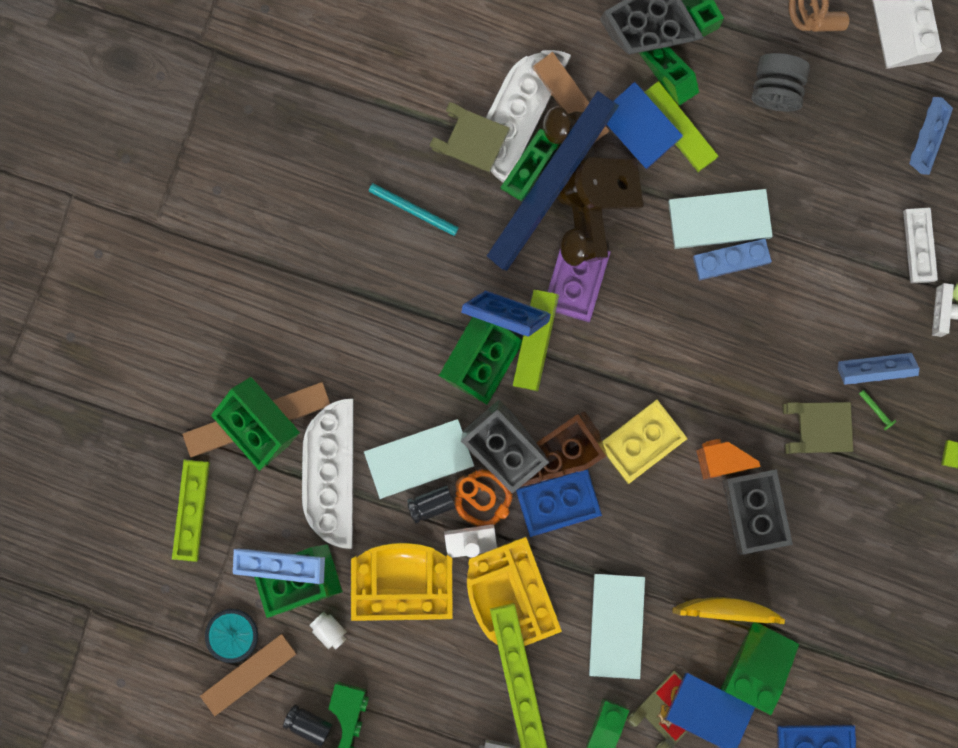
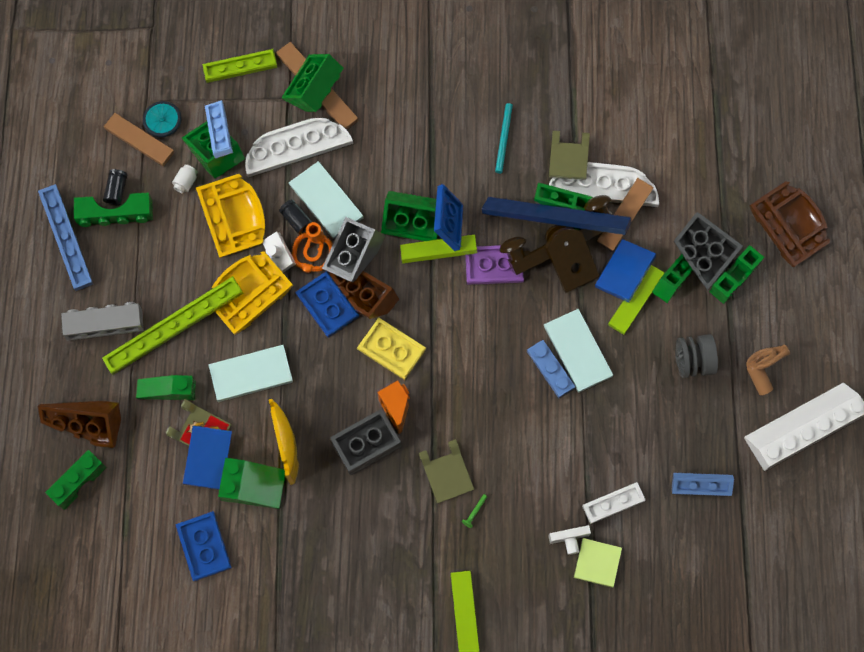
camera: 70 degrees right, 10 degrees down
(878, 368) = (506, 500): medium blue plate -> none

